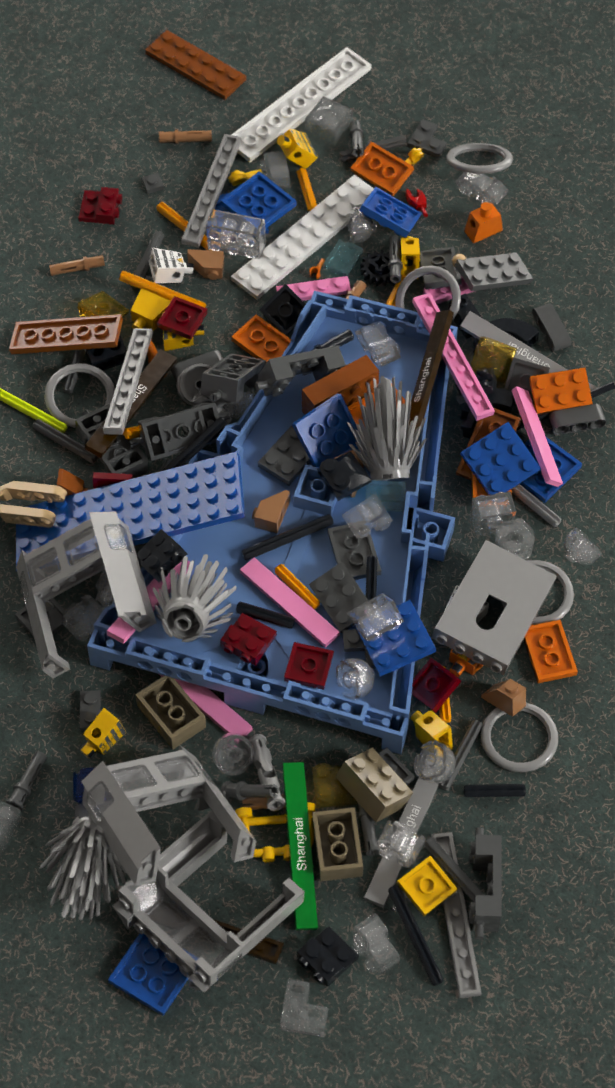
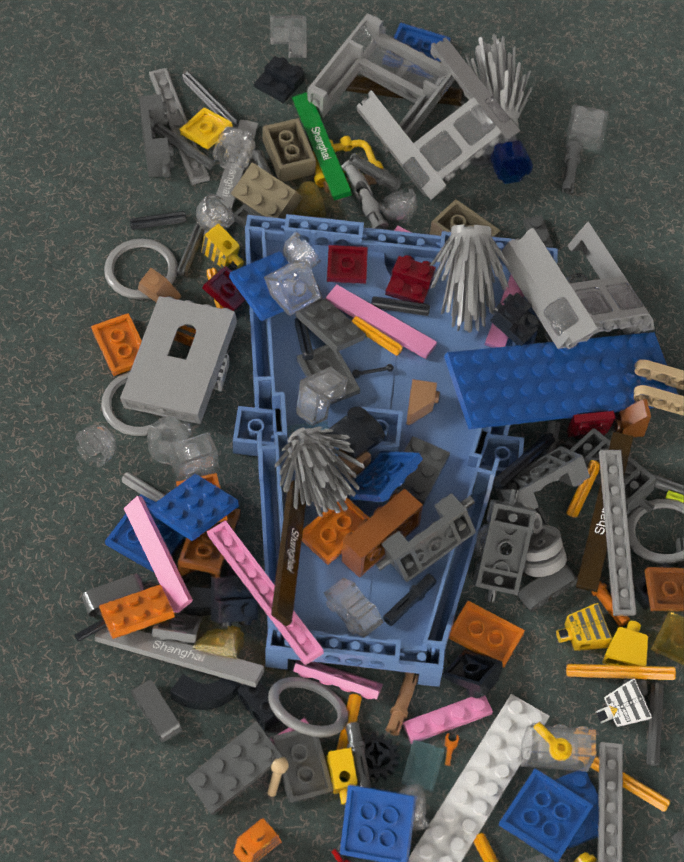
camera: 165 degrees right, 0 degrees up
(102, 733) = (521, 199): yellow torso -> none
(182, 318) = (585, 626): dark red plate -> none
(207, 263) = (580, 717): medium nougat slope -> none
(240, 213) = (559, 748): none -> yellow plate
(287, 537) = (399, 381): black axle -> none
(326, 554) = (356, 373): none -> black hinge
(372, 942) = (242, 84): clear brick -> none

